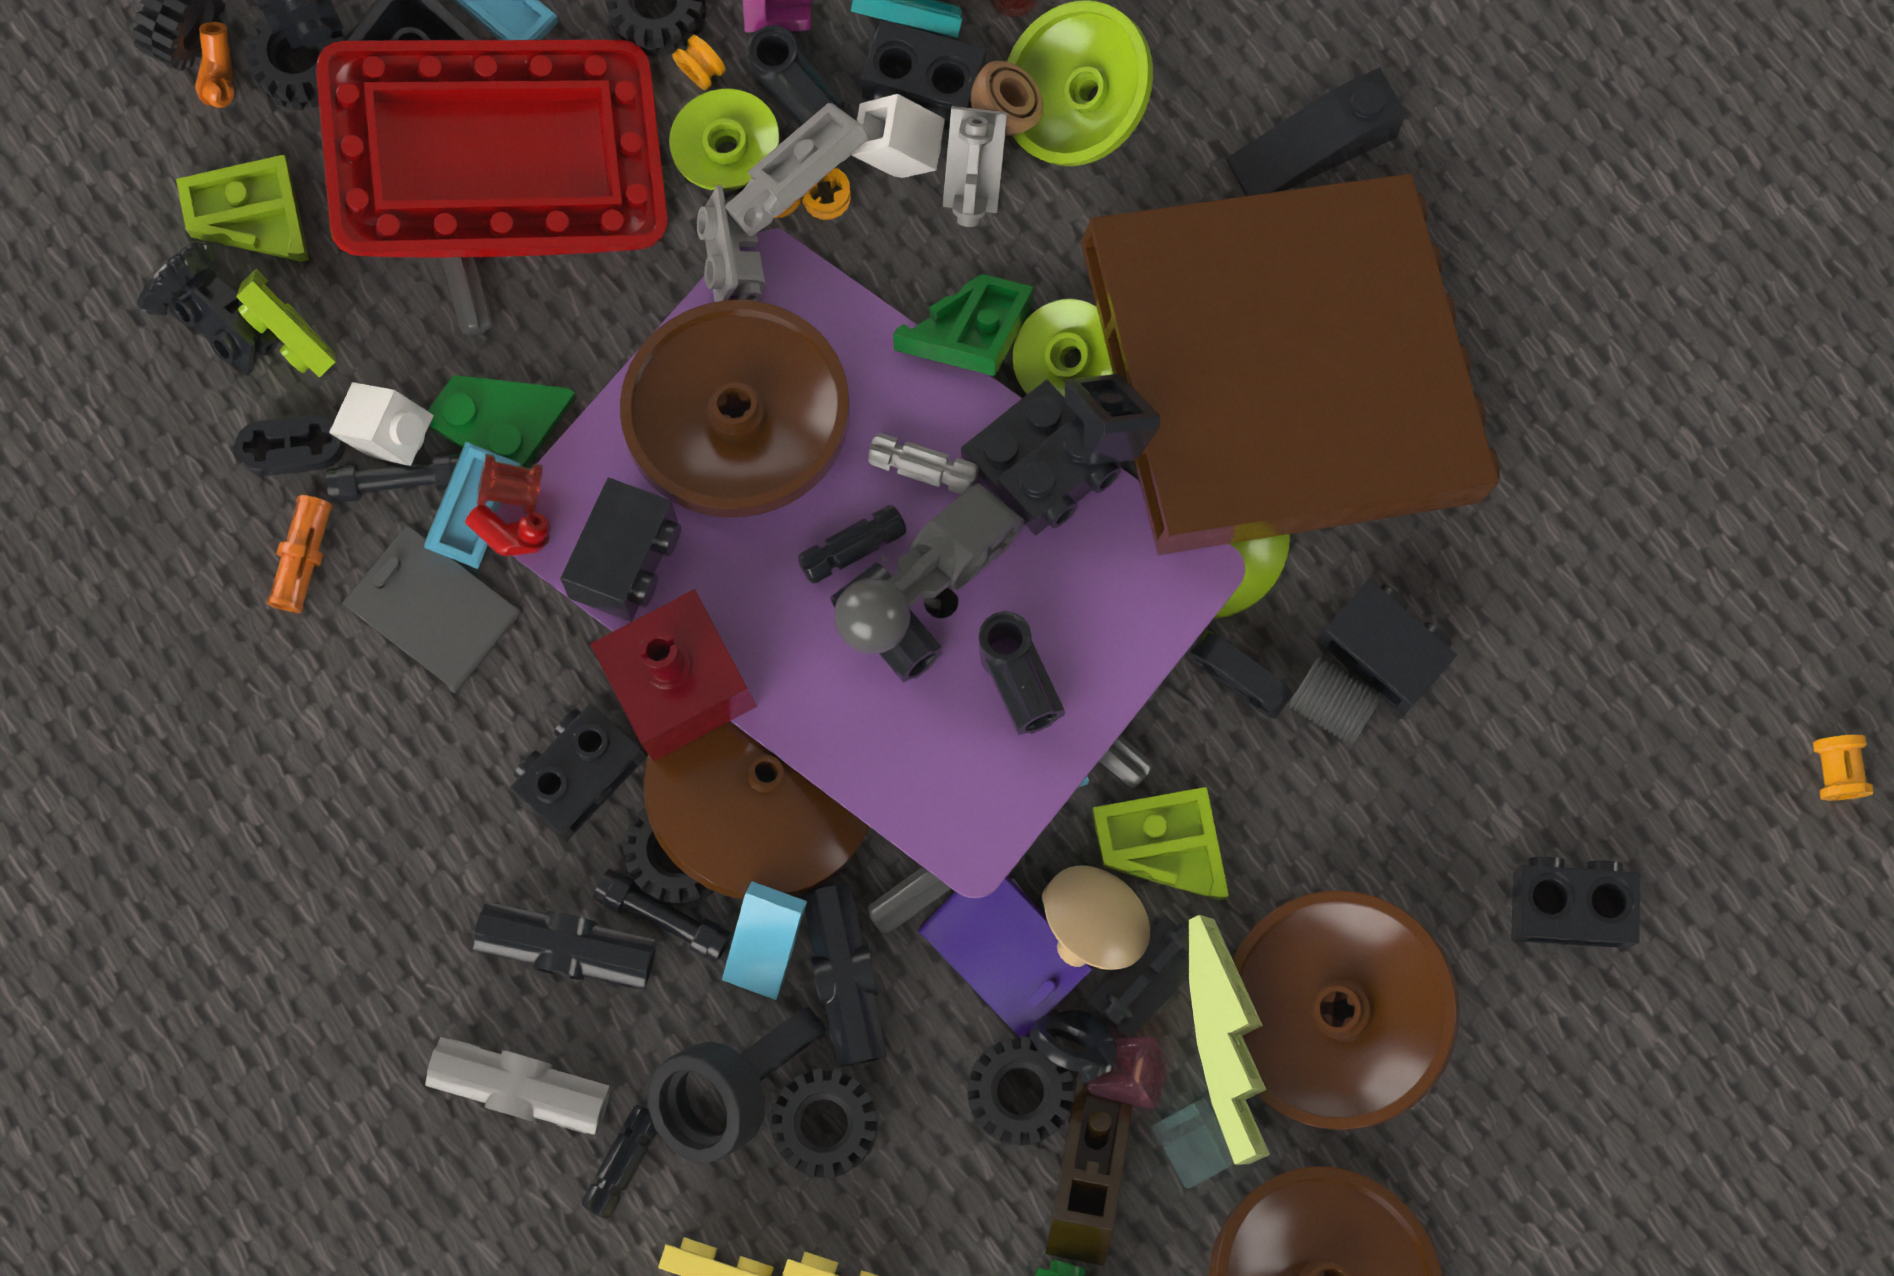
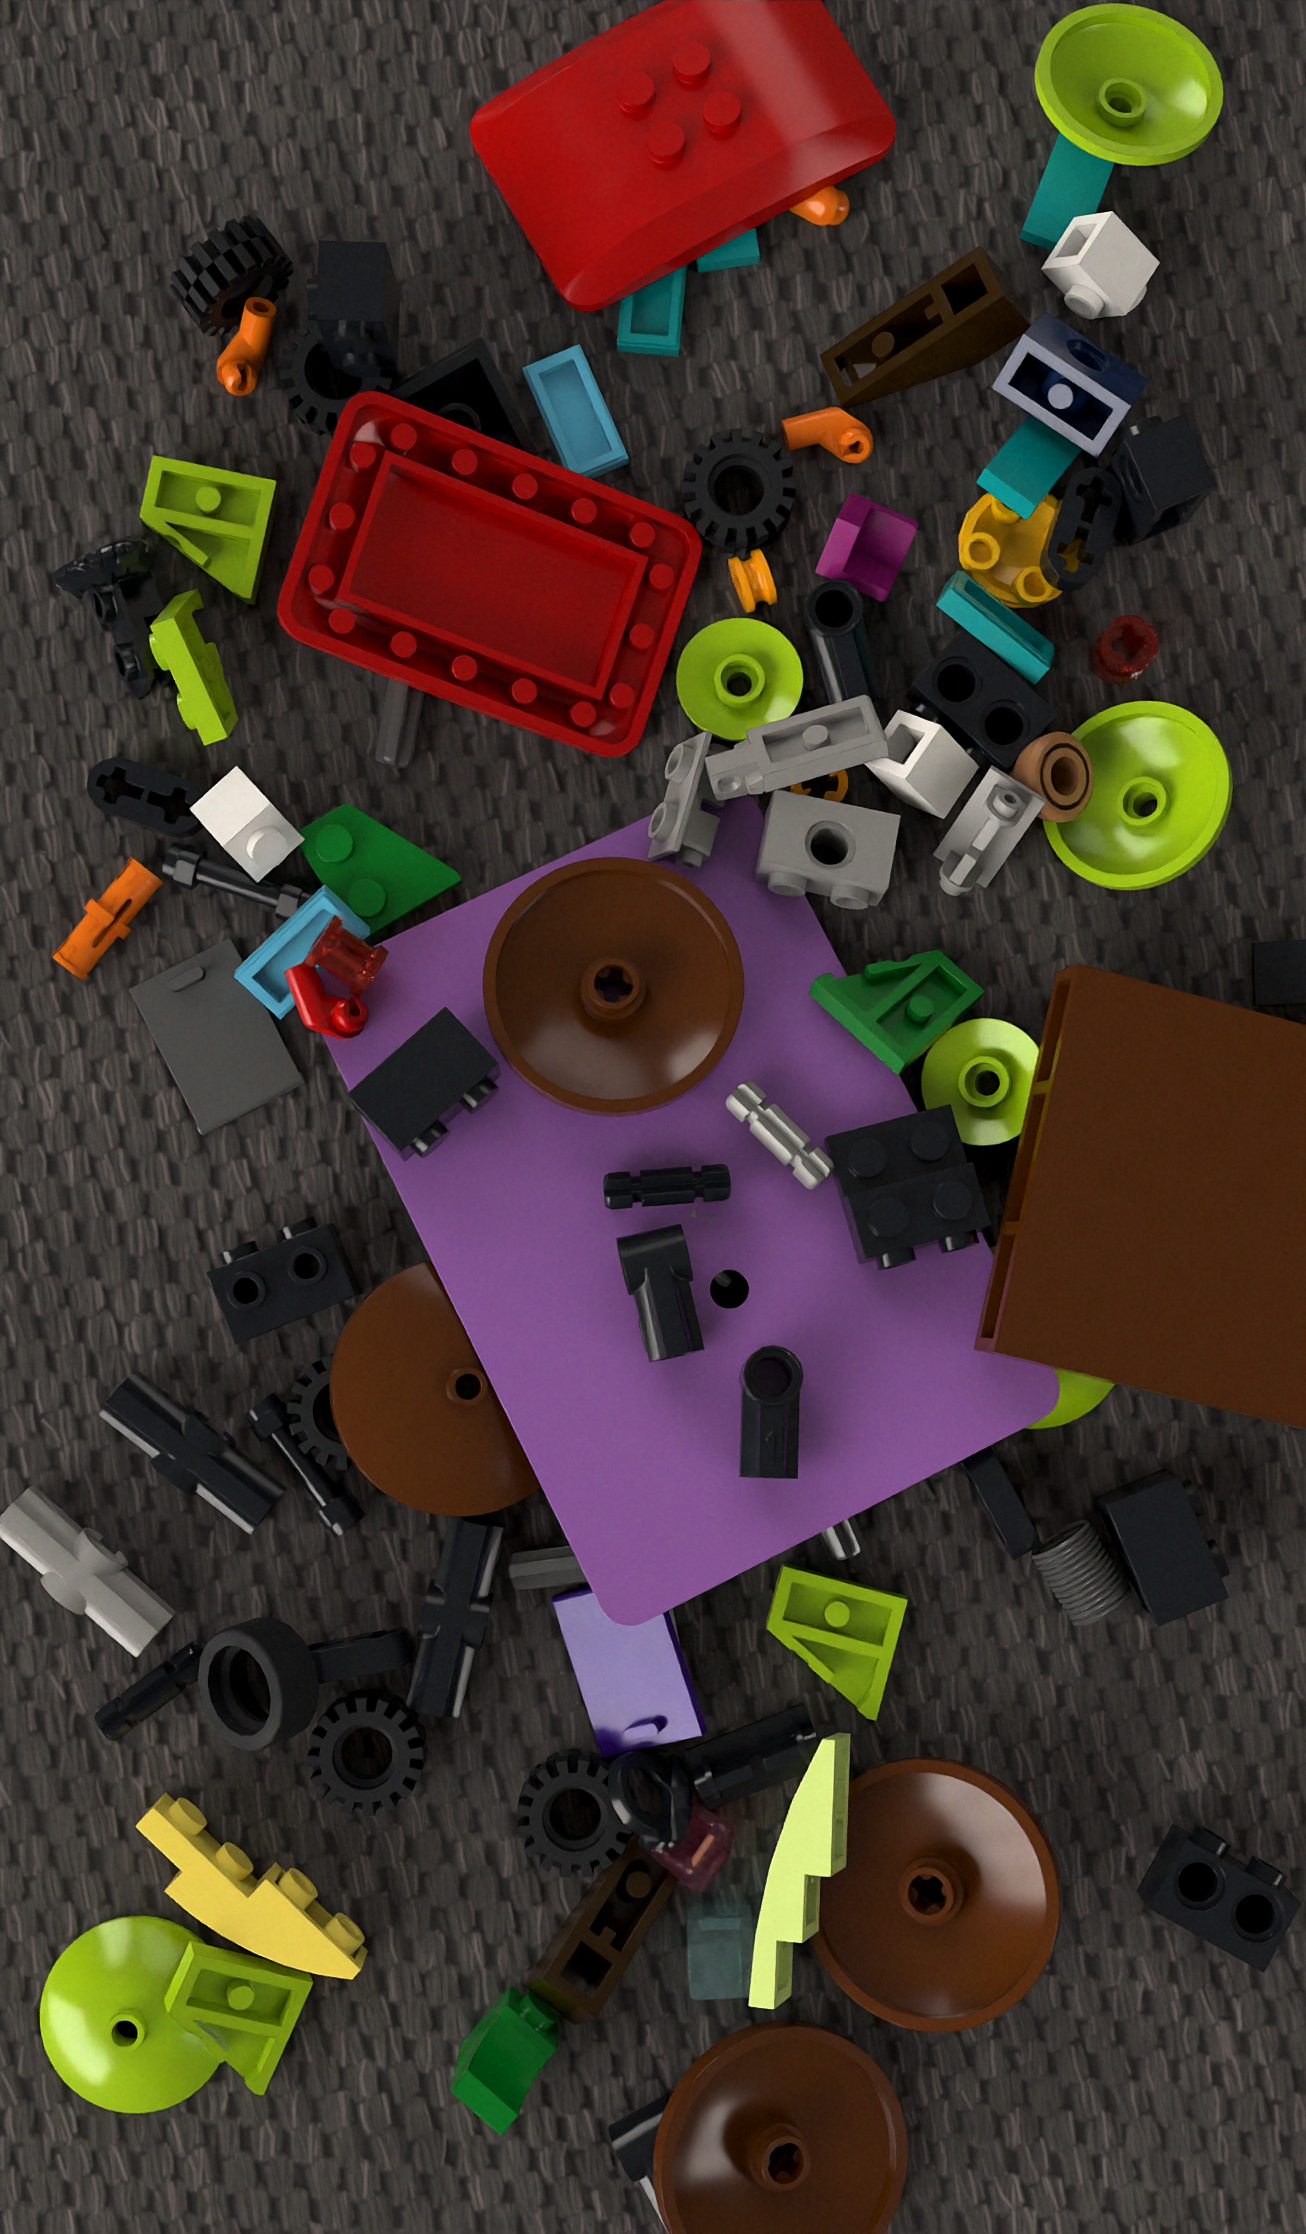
camera: 20 degrees right, 10 degrees up
(673, 675) = (417, 1246): dark red brick -> none
(764, 940) = (391, 1547): medium azure tile -> none
(869, 212) = (859, 836): none -> light grey brick
(946, 553) = (650, 1294): dark grey beam -> none
(1096, 918) = (731, 1683): tan dish -> none
(1114, 418) = (998, 1190): black slope -> none

